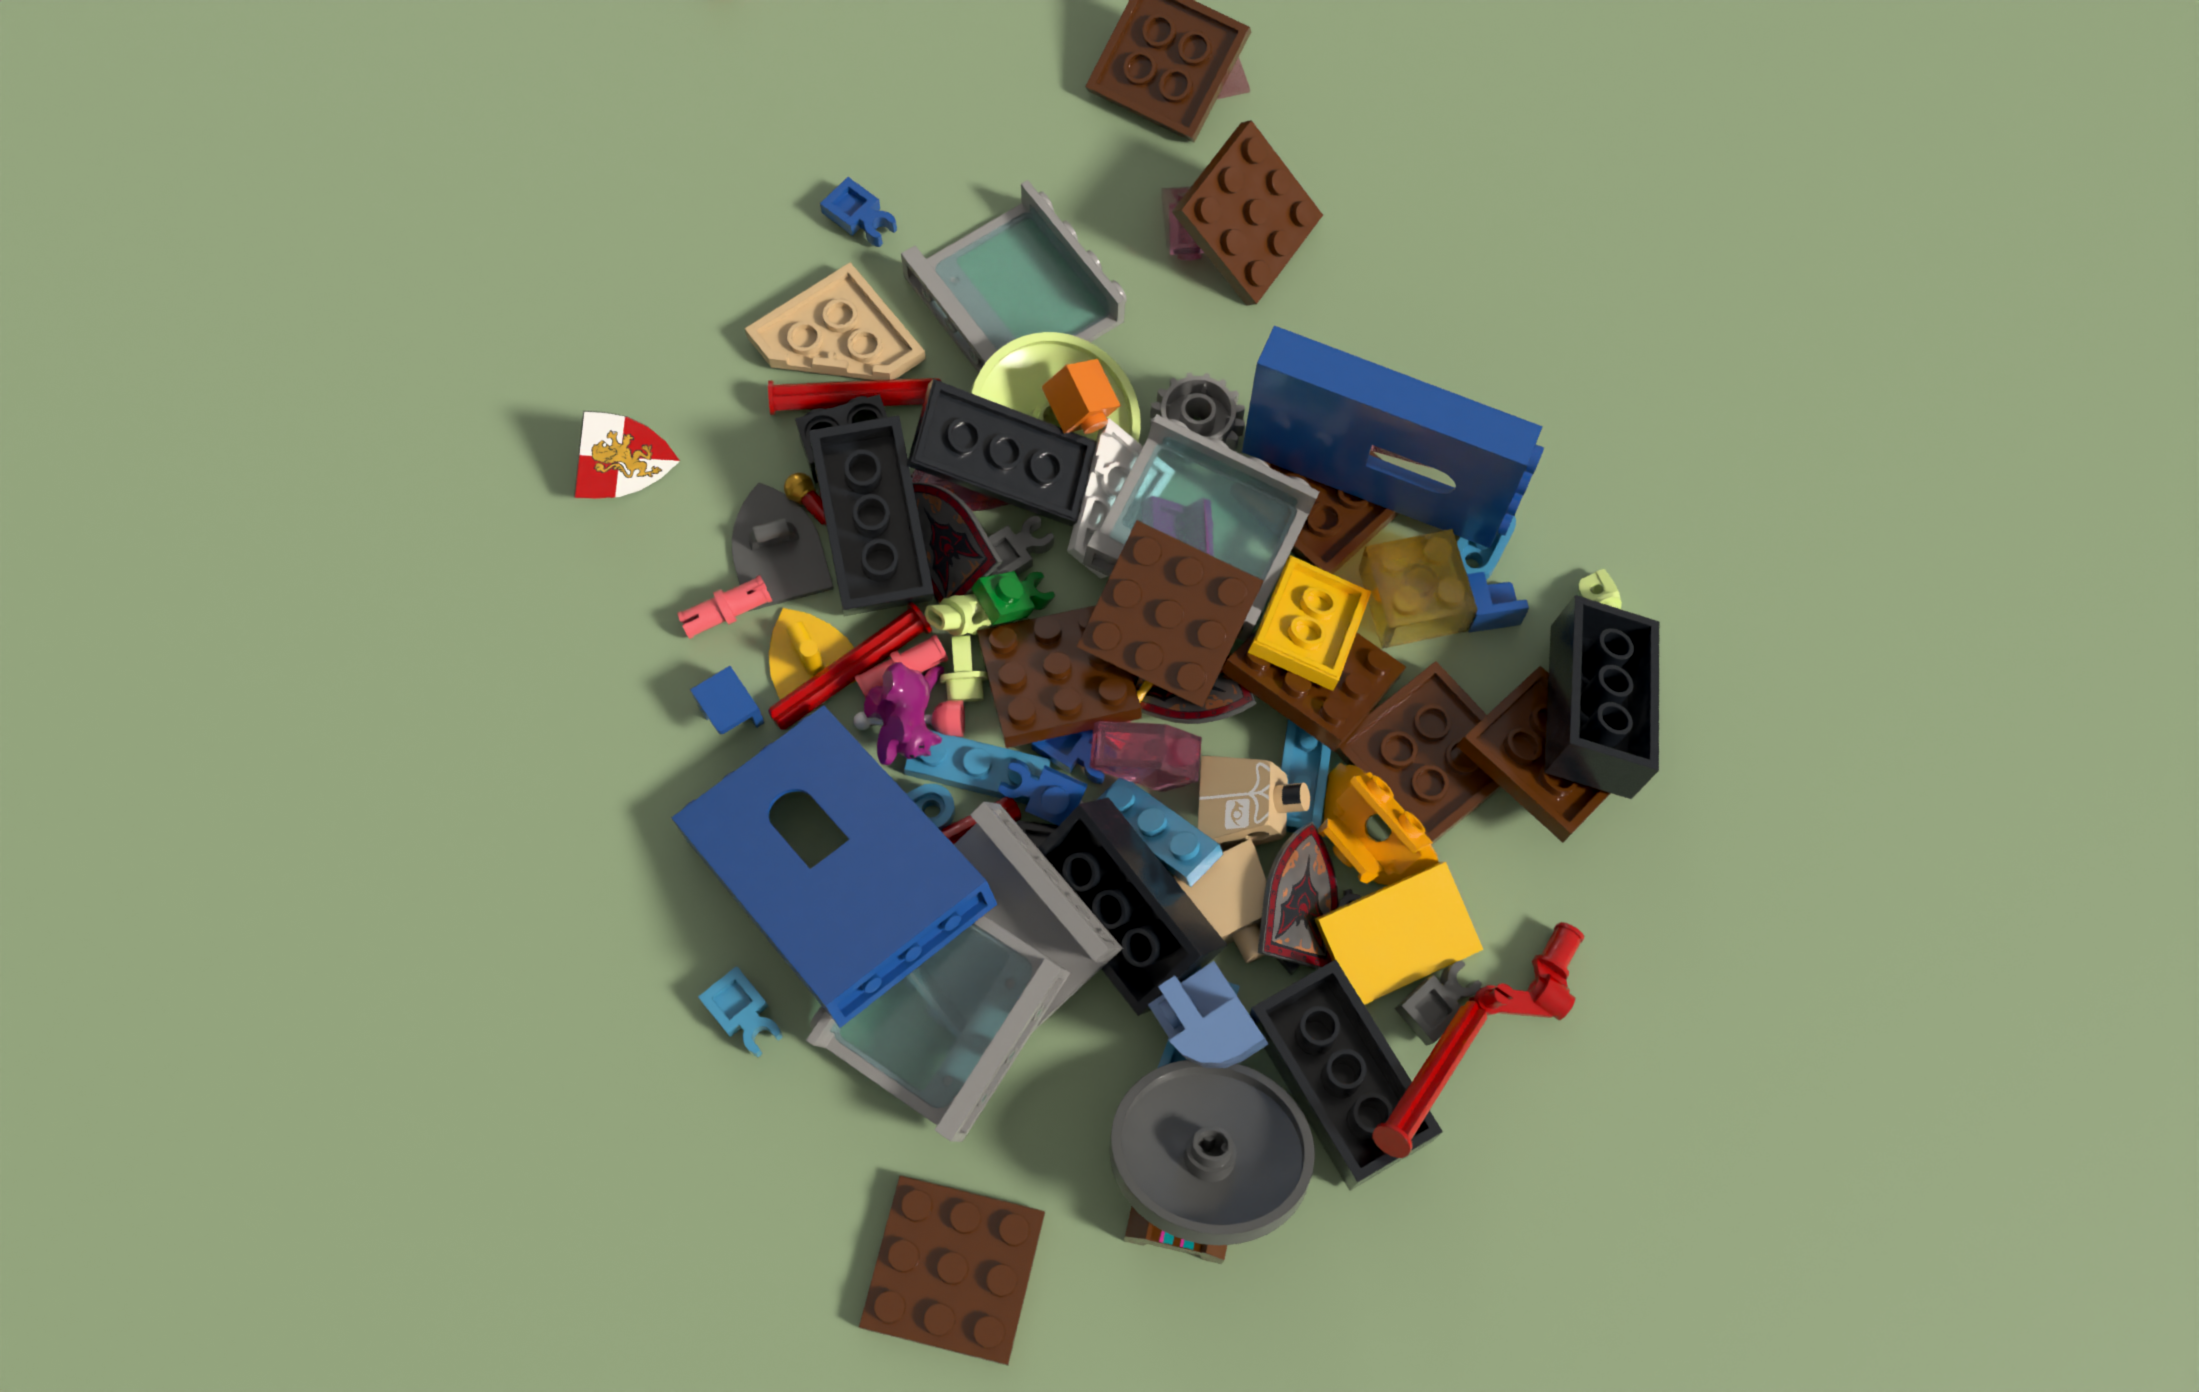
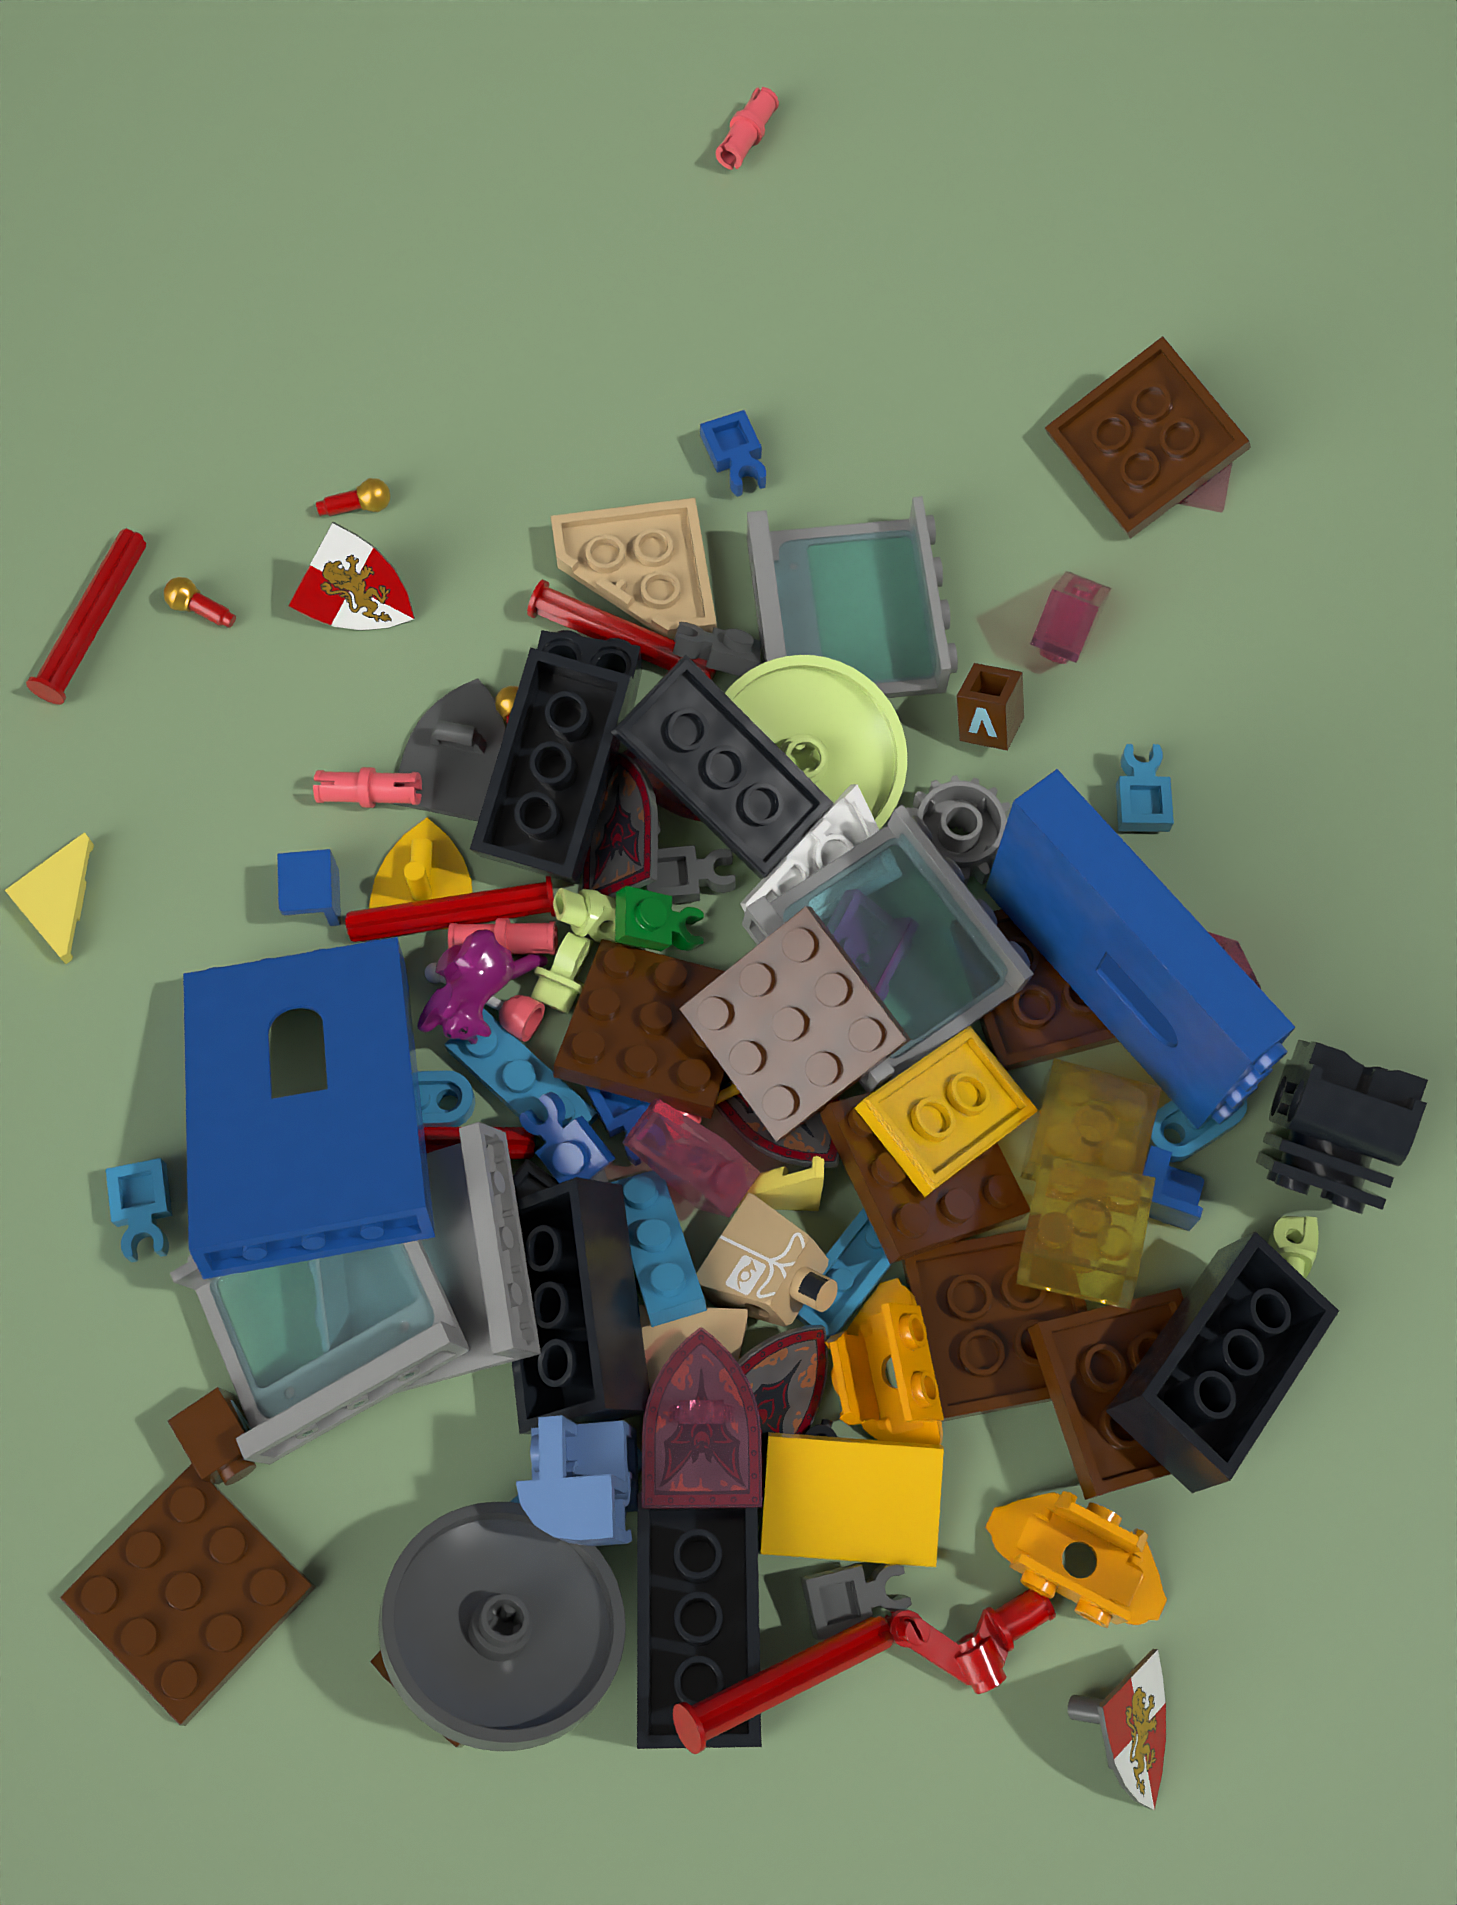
camera: 30 degrees right, 0 degrees up
(410, 587) = (87, 617): none -> red axle
(480, 531) = (183, 595): none -> piece
(519, 815) = (55, 894): none -> light yellow tile
(585, 381) = (370, 496): none -> piece
(910, 1145) = (209, 1437): none -> reddish brown brick
(948, 365) = (724, 650): none -> dark grey plate
(1081, 397) = (837, 748): orange brick -> none
(1169, 314) = (990, 706): none -> reddish brown brick
(1233, 738) = (790, 1191): none -> light yellow tile
(1247, 213) = (1135, 638): reddish brown plate -> none
(1273, 939) = (701, 1432): none -> clear pink shield
(1313, 323) = (1141, 796): none -> dark azure plate
(1458, 656) = (1086, 1231): none -> clear yellow brick
(1539, 885) = (1125, 1576): none -> light orange piece
(1587, 490) = (1339, 1123): none -> black piece
(1676, 984) = (1132, 1728): none -> shield

